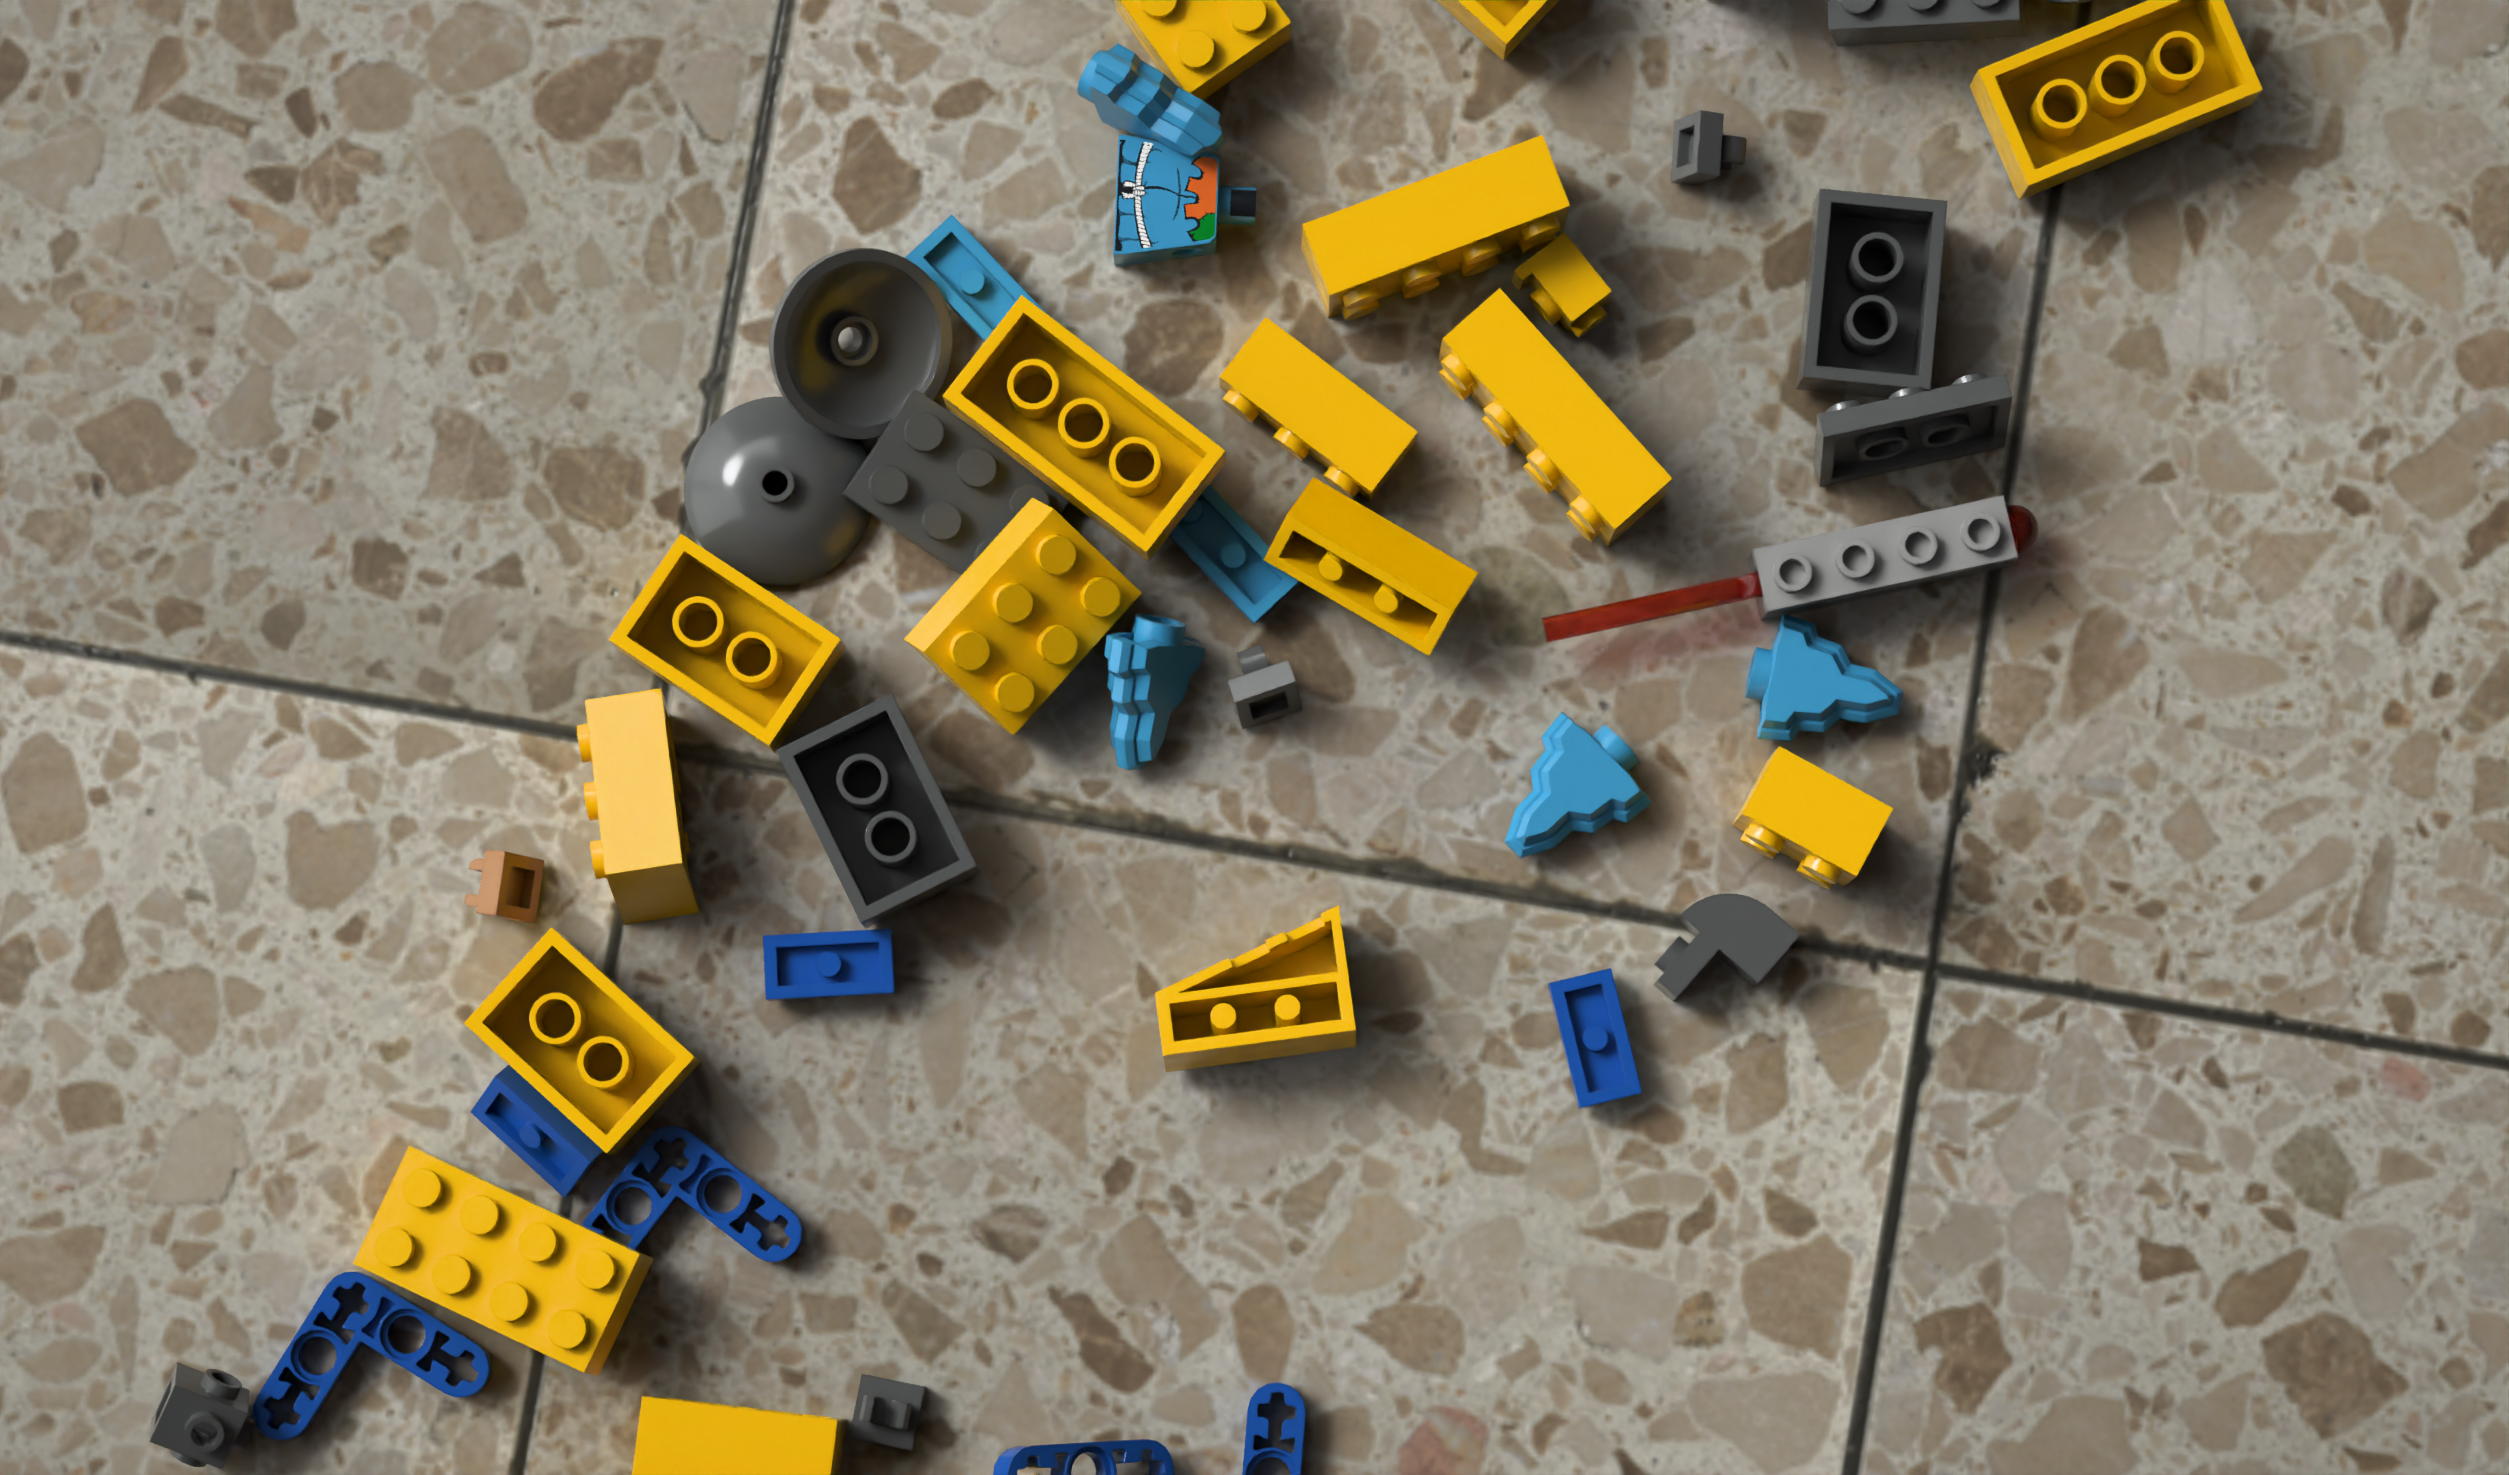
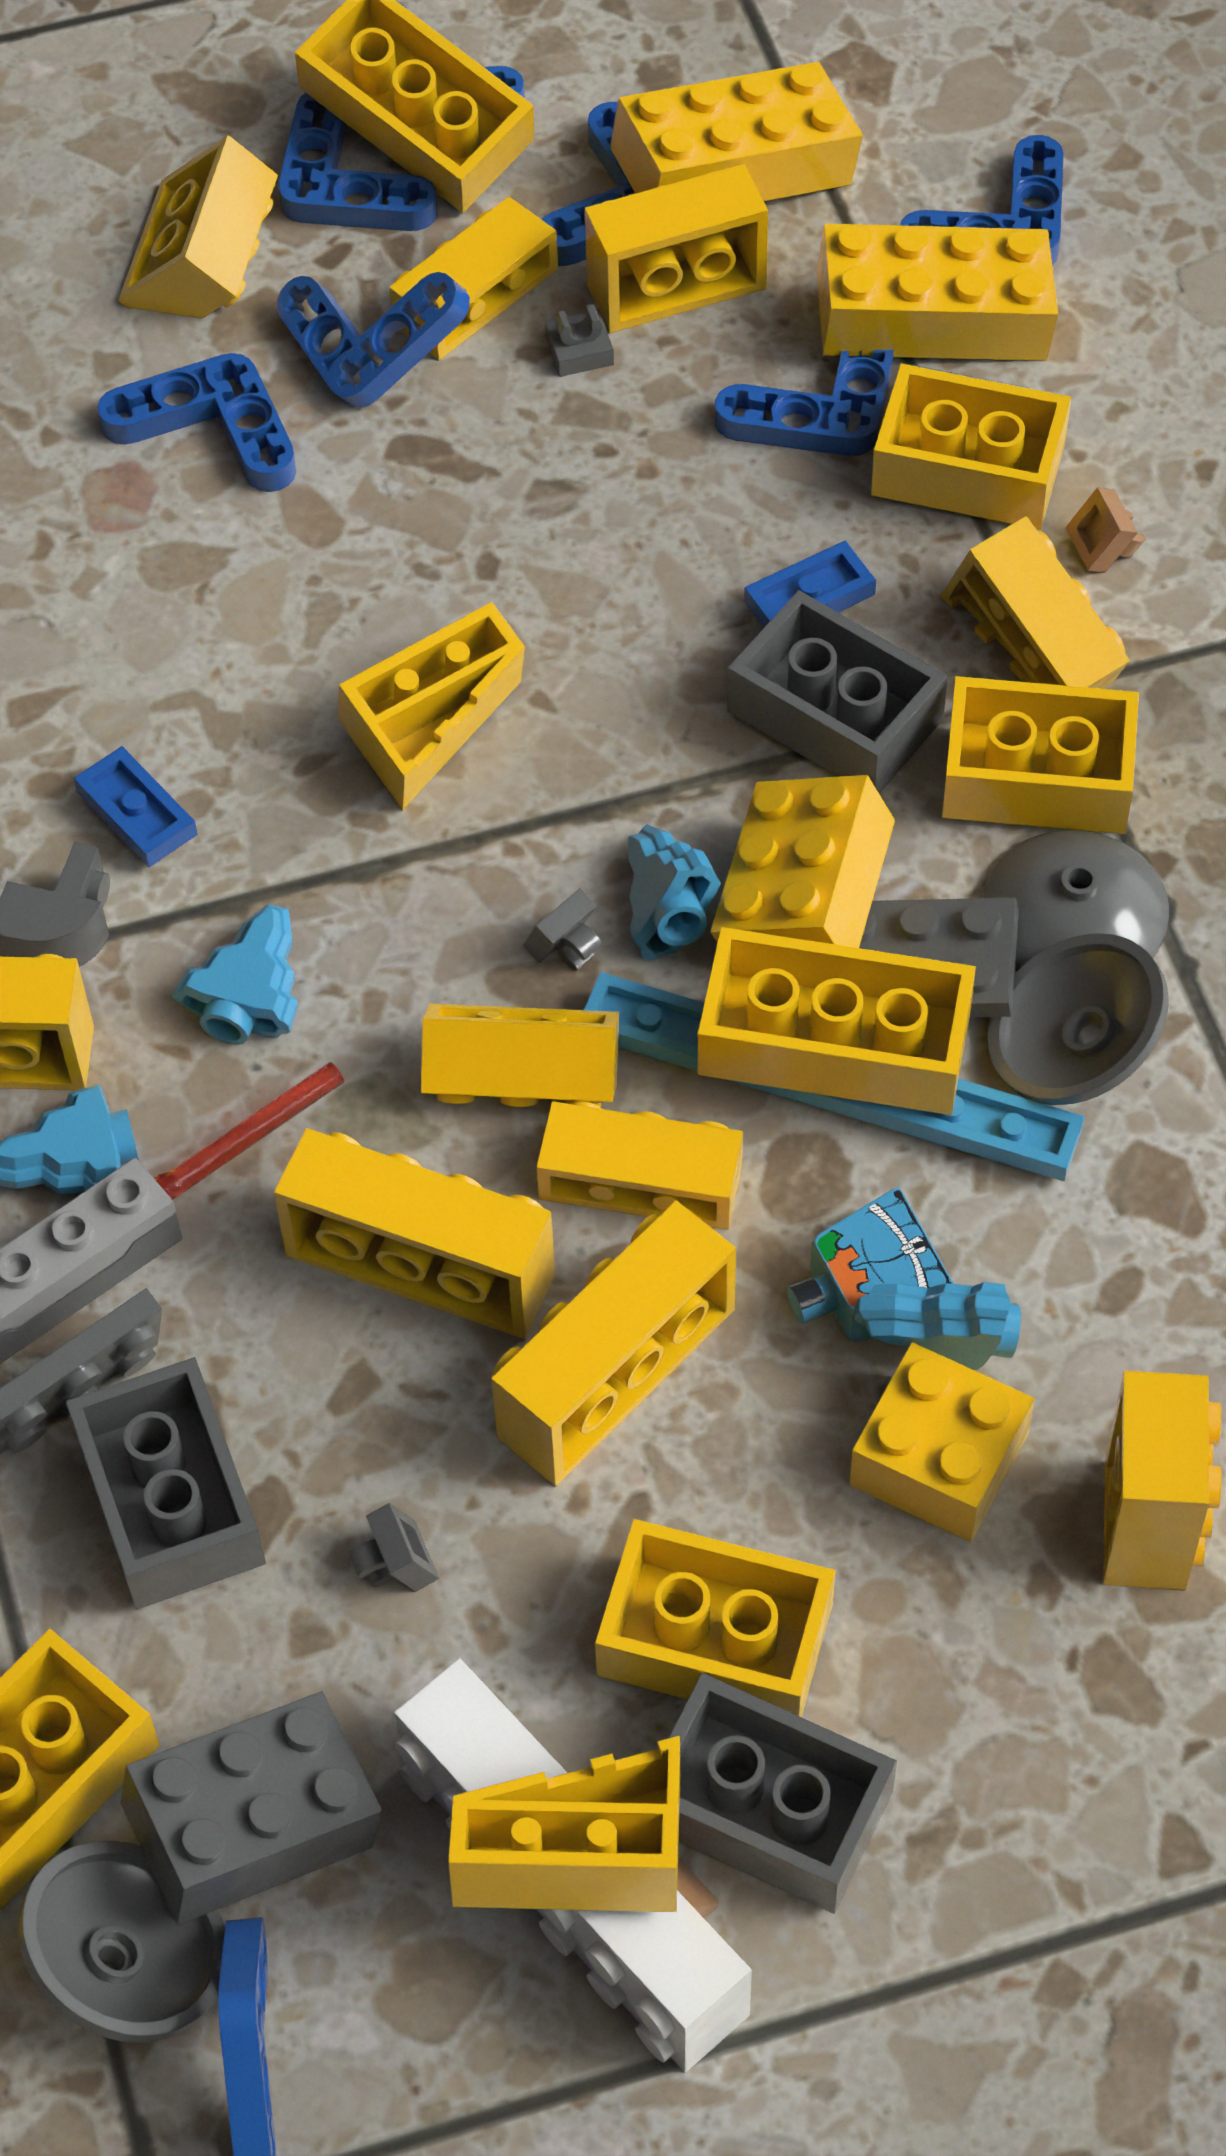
camera: 155 degrees right, 25 degrees down
(202, 1417) = (1093, 117): dark grey brick -> none
(1564, 286) = (459, 1368): yellow brick -> none

